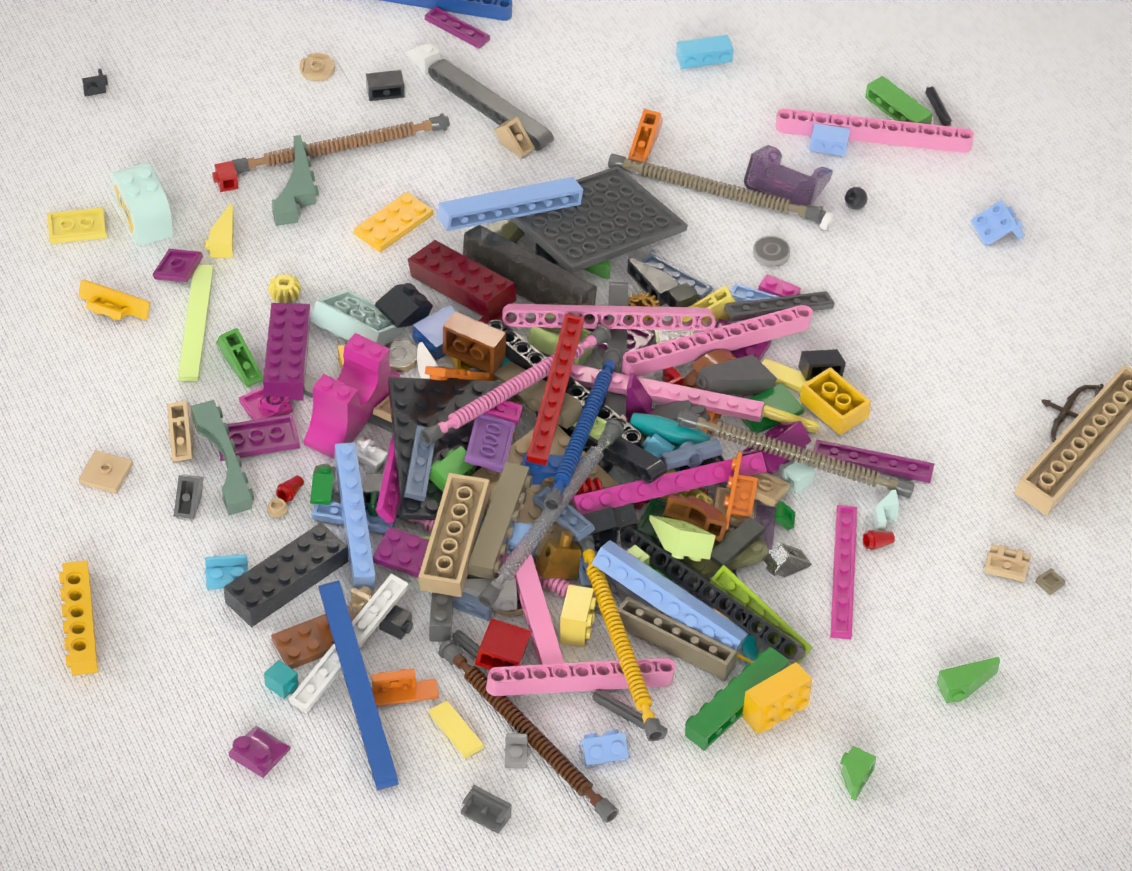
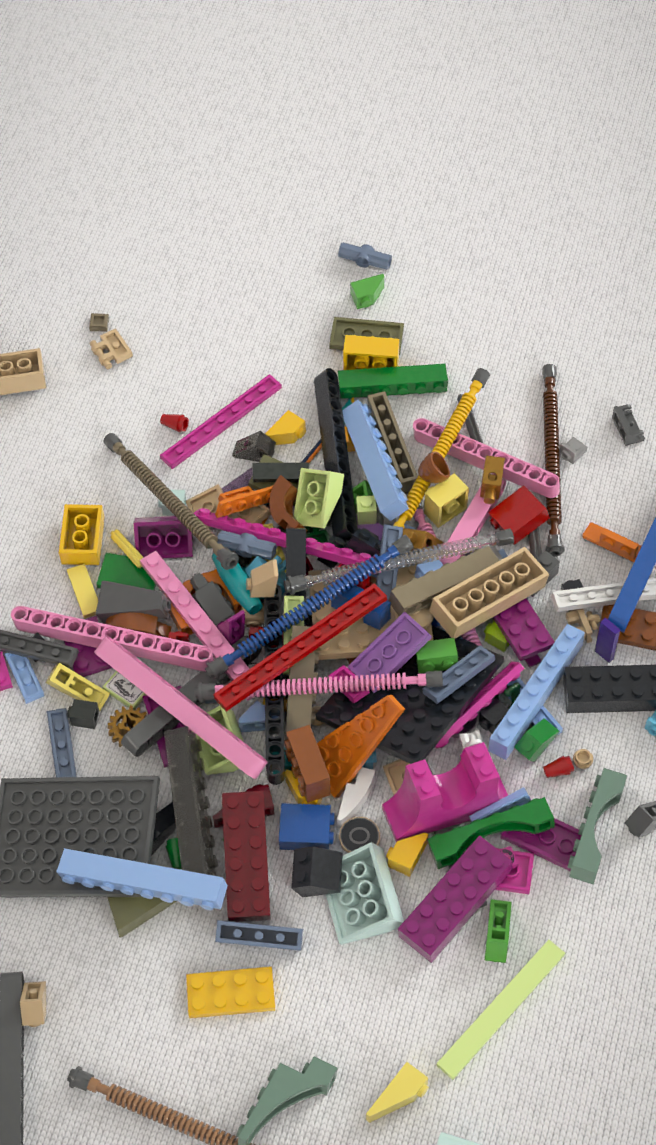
camera: 135 degrees left, 10 degrees up
(112, 302) = (567, 1084): yellow bracket -> none
(178, 265) = (469, 1087): magenta plate -> none
(181, 431) = (606, 887): tan slope -> none
(278, 424) = (530, 817): none -> green arch
(284, 288) = (405, 980): light yellow gear -> none
(299, 429) = (519, 798): none -> light blue tile
(328, 572) = (607, 640): none -> dark purple tile
(395, 254) = (259, 935): none -> sand blue brick
(456, 729) = (598, 493): light yellow tile -> none
(549, 641) = (490, 482): none -> pearl gold torso
(599, 599) = (434, 468): none -> dark orange hat
(604, 748) = (510, 413): light blue bracket -> none
(639, 421) = (263, 580): none -> tan slope
(651, 279) = (88, 739): slope -> none
(731, 583) = (314, 451): lime plate -> none
(779, 593) = (287, 429): none -> yellow slope
(785, 515) = (220, 478): green plate -> none
(808, 729) = (362, 327): none -> olive plate
(817, 361) = (54, 571): black brick -> none
(877, 461) = (108, 478): magenta plate -> none
(886, 509) = (142, 437): light aqua slope -> none
(900, 807) = (365, 256): none -> sand blue piece
(963, 680) = (234, 296): bright green slope -> none

